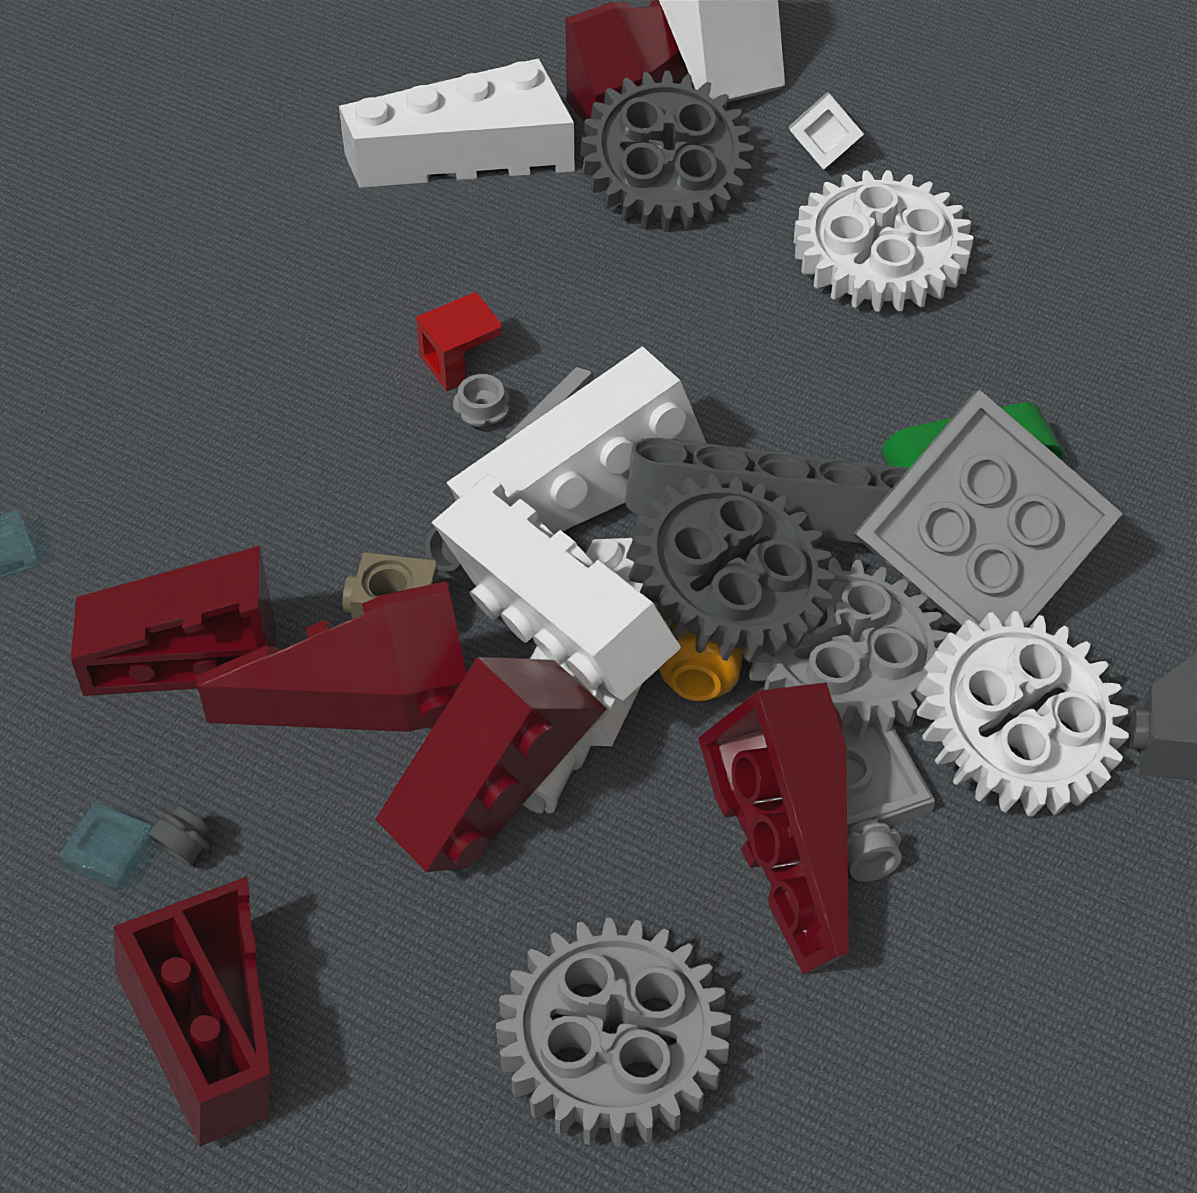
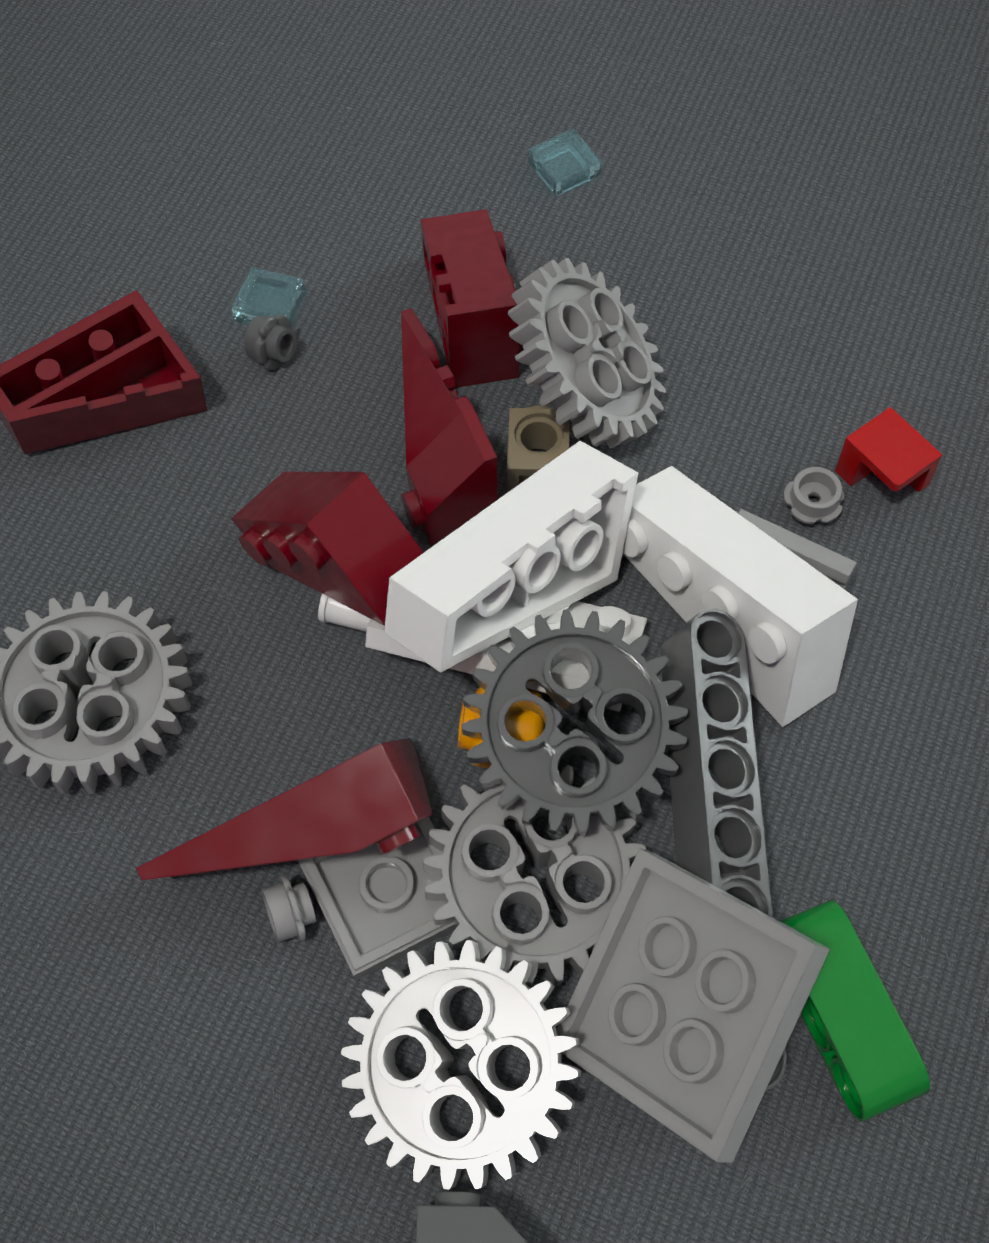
camera: 85 degrees right, 10 degrees up
(306, 520) = (587, 353): none -> light grey gear

